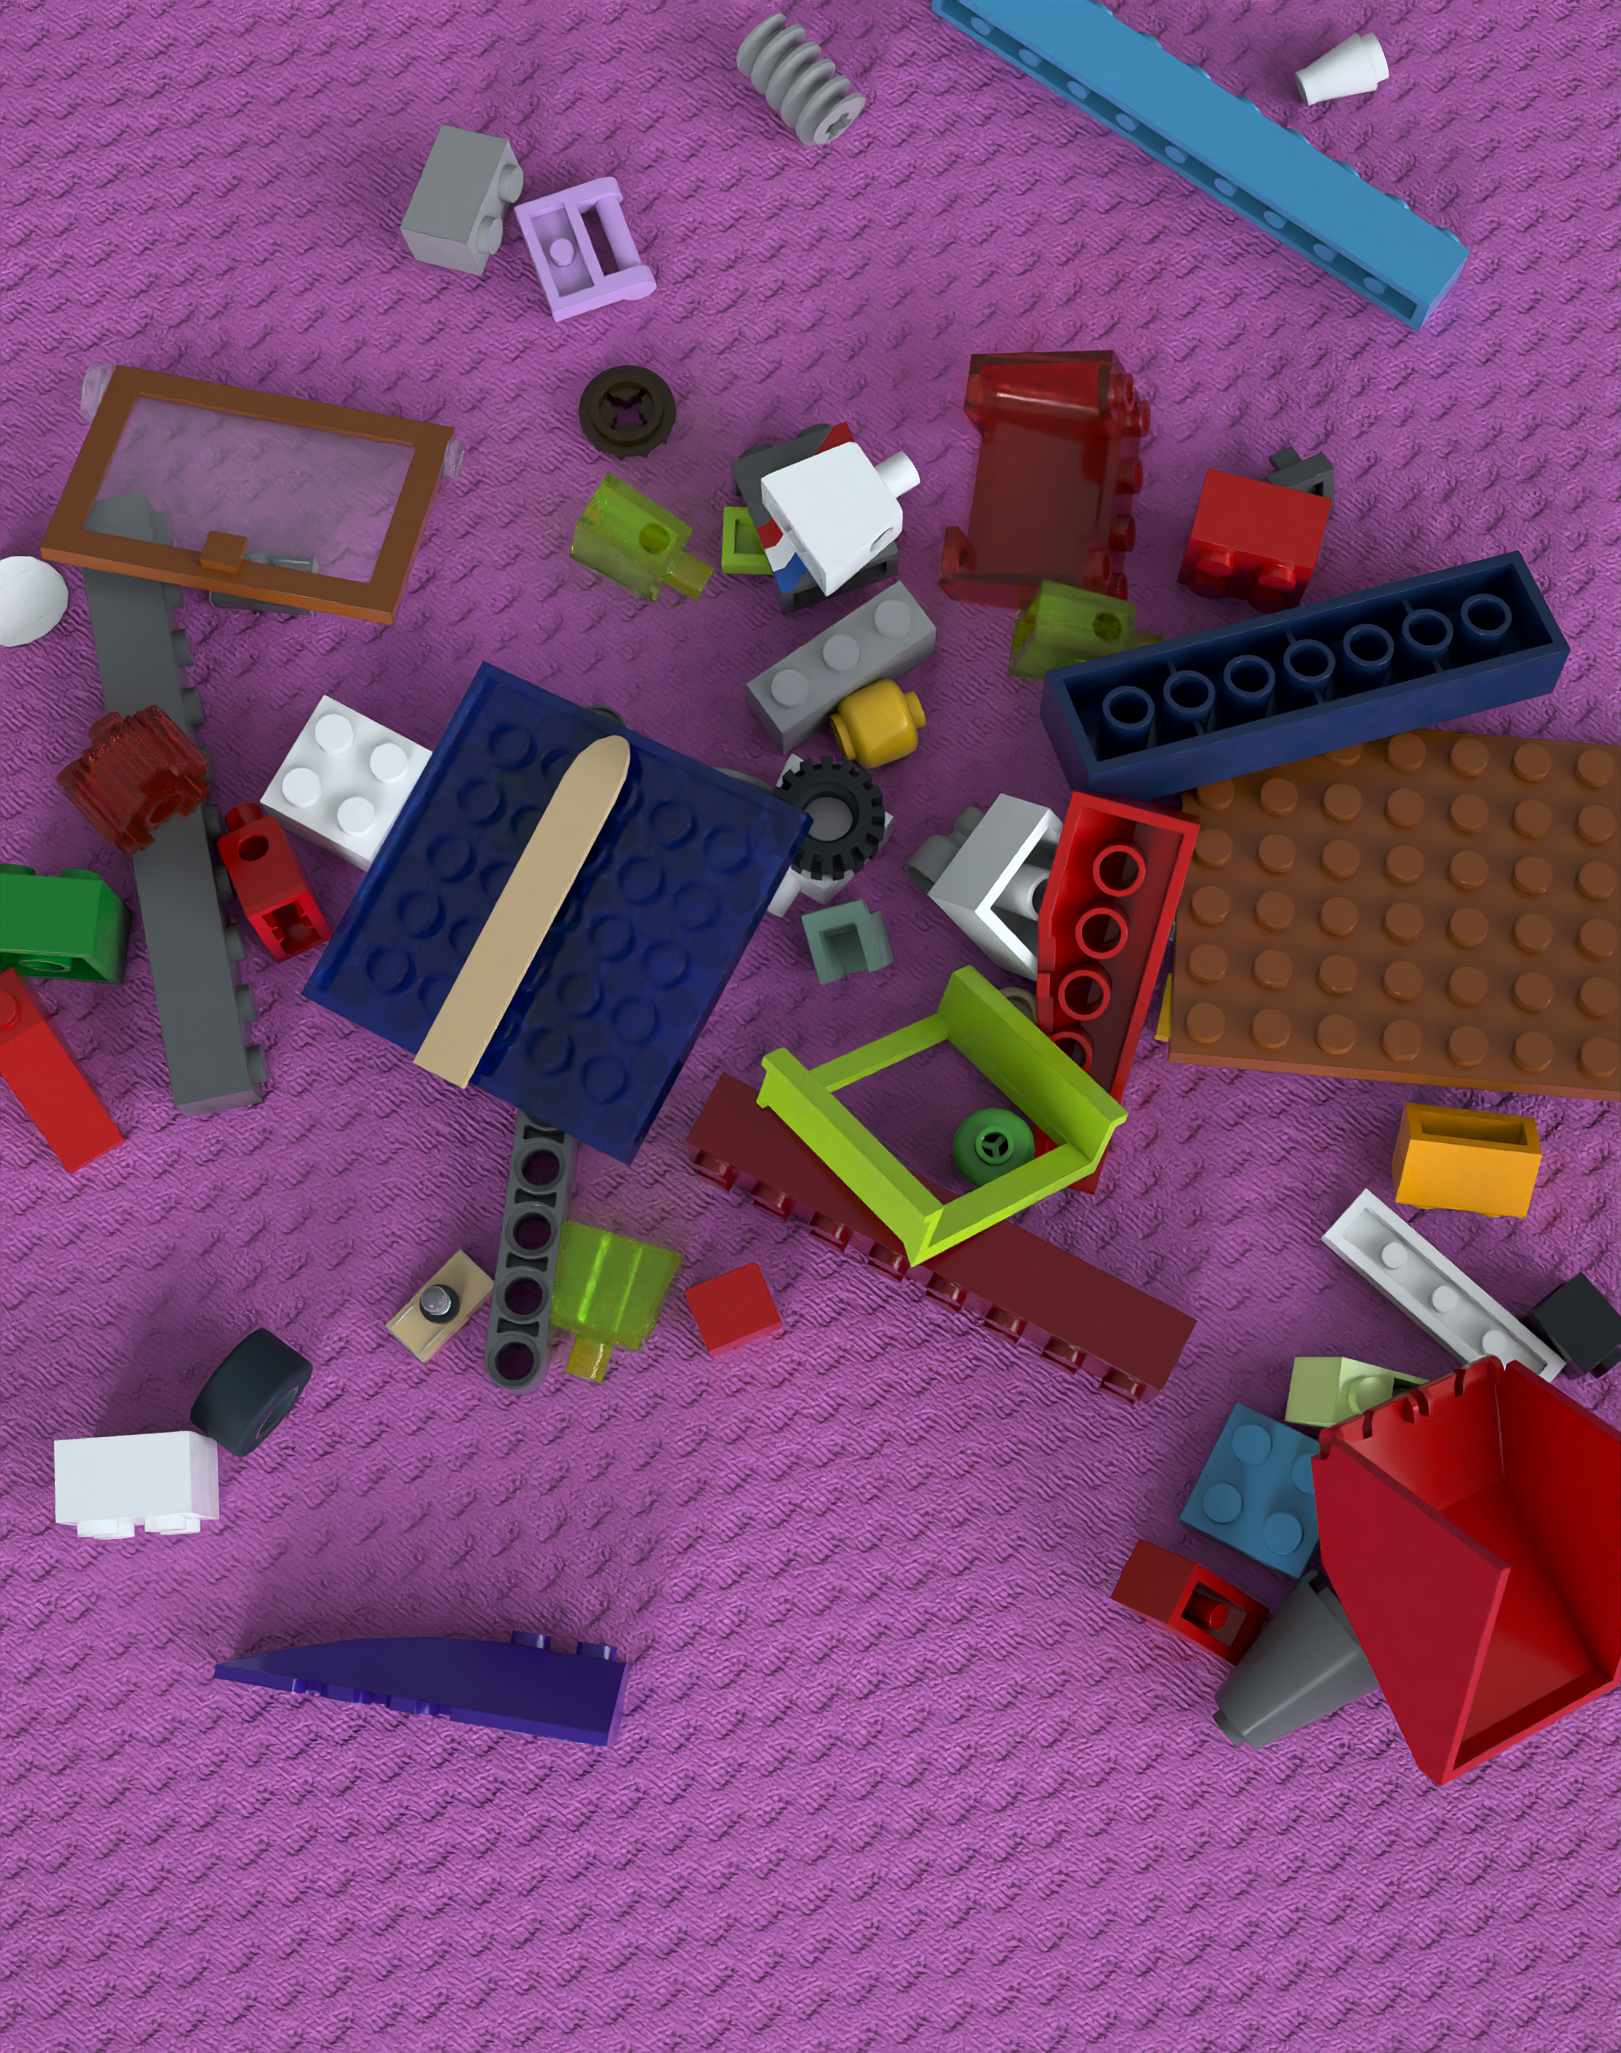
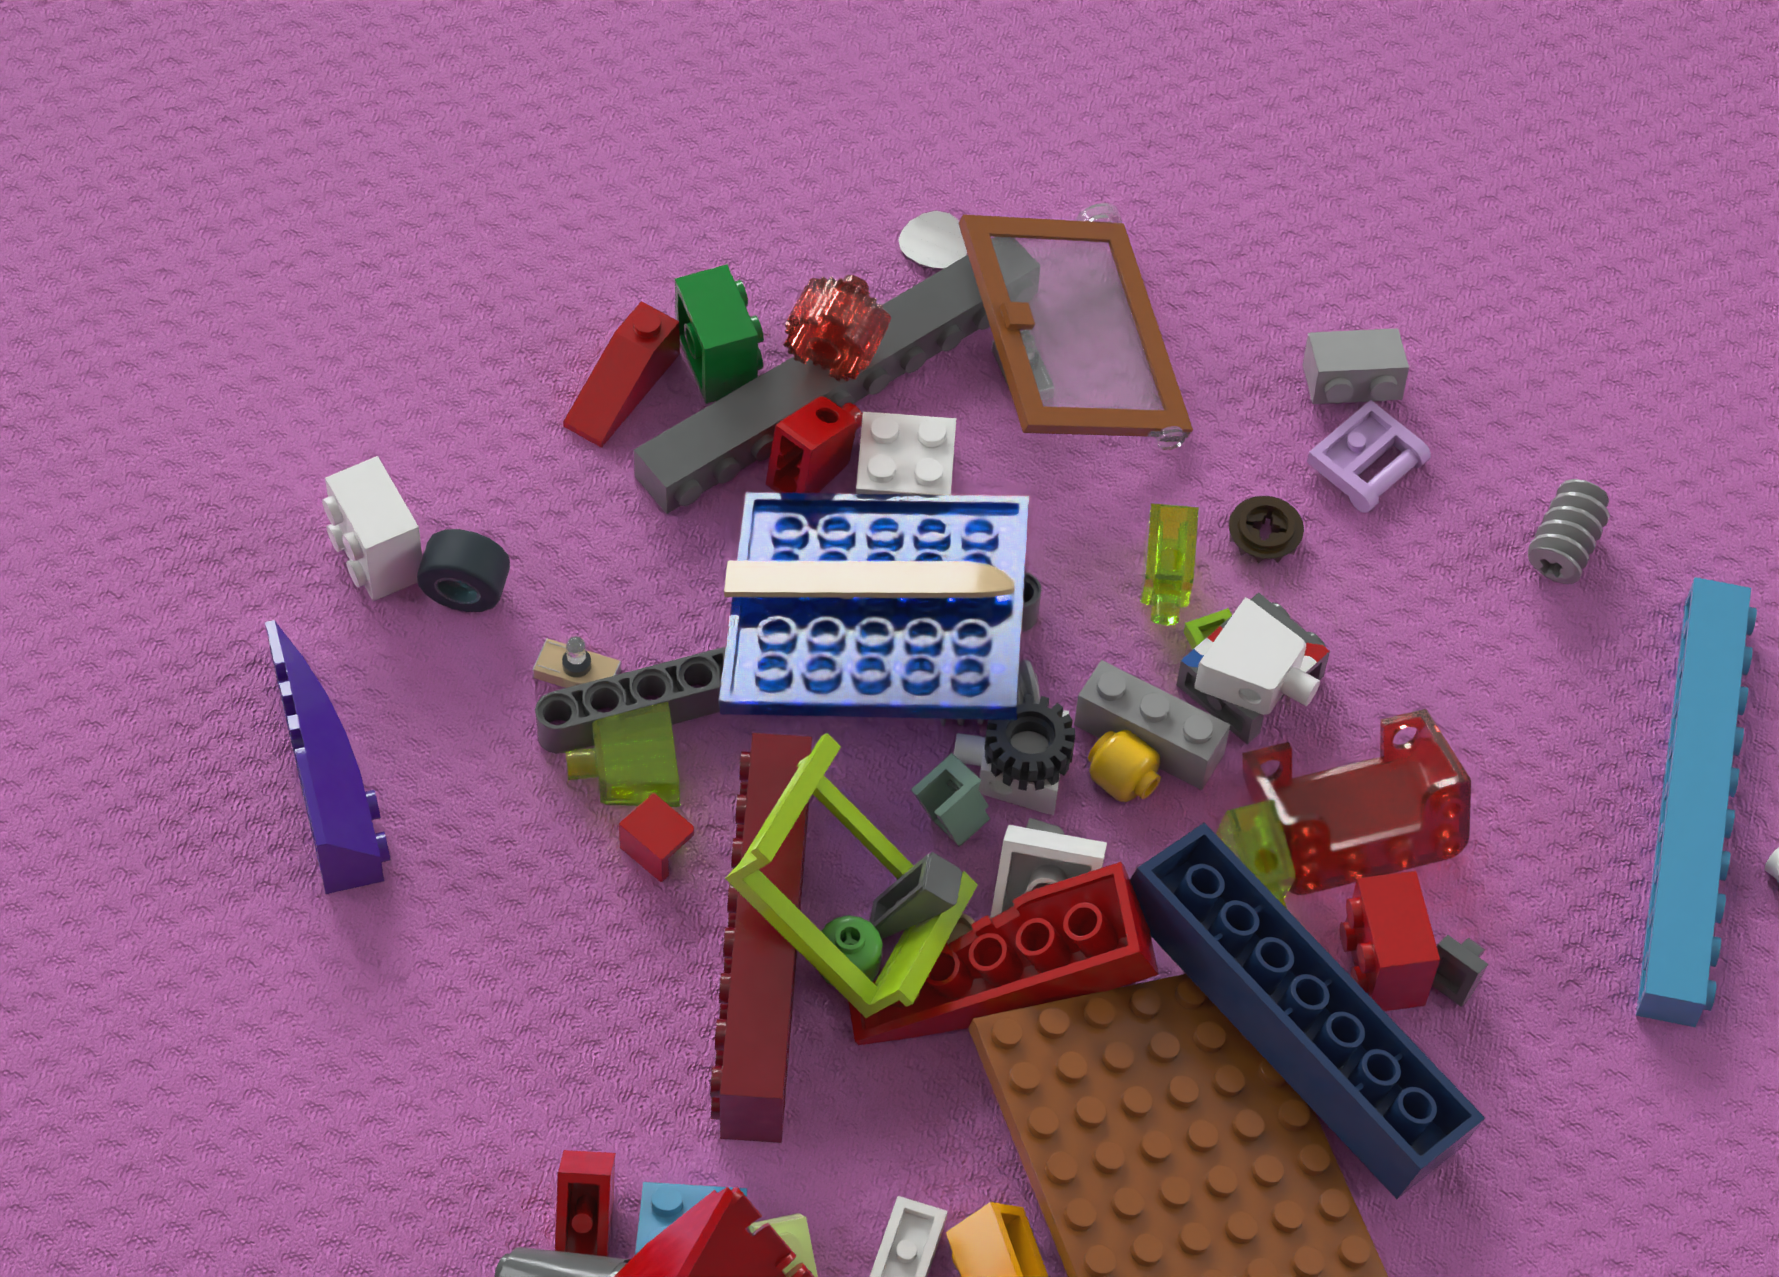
camera: 60 degrees right, 20 degrees down
(966, 1042) = (917, 895): none -> dark grey slope

